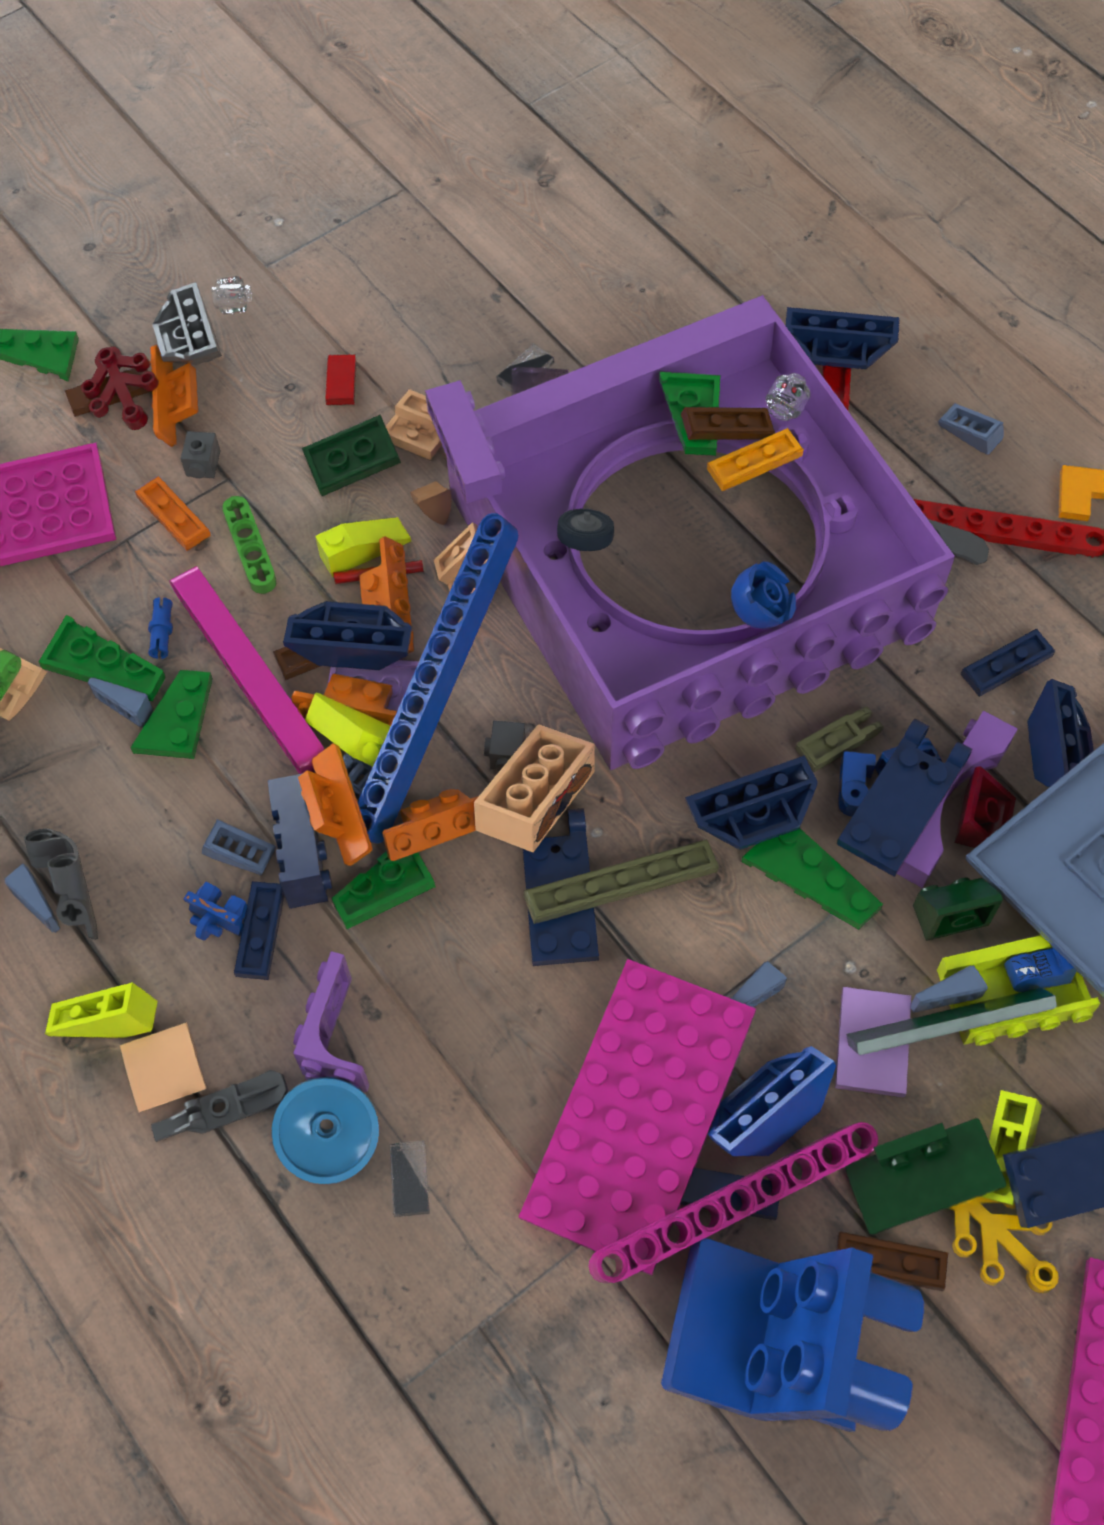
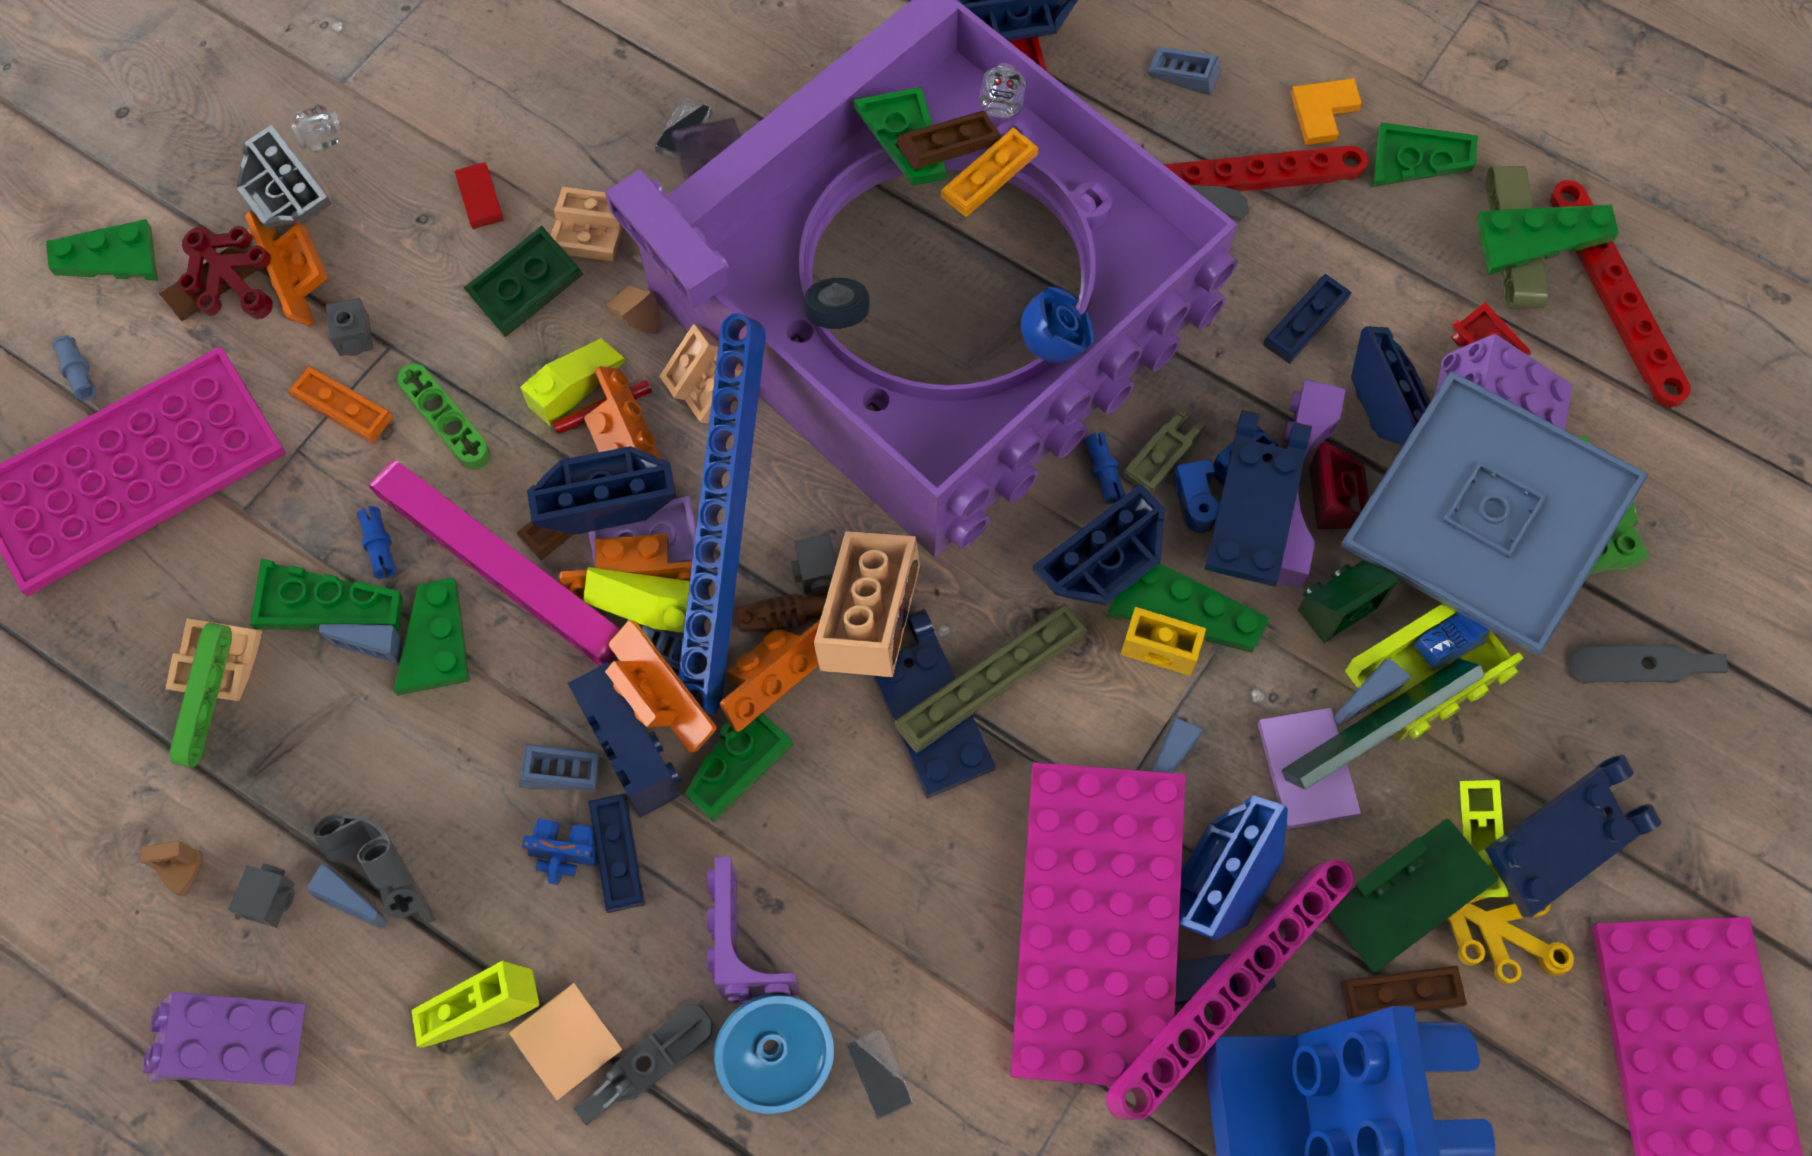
camera: 20 degrees left, 5 degrees up
(458, 775) = (779, 612): none -> reddish brown hinge
(779, 894) = (1163, 641): none -> yellow brick
(781, 734) = (1104, 467): none -> blue pin

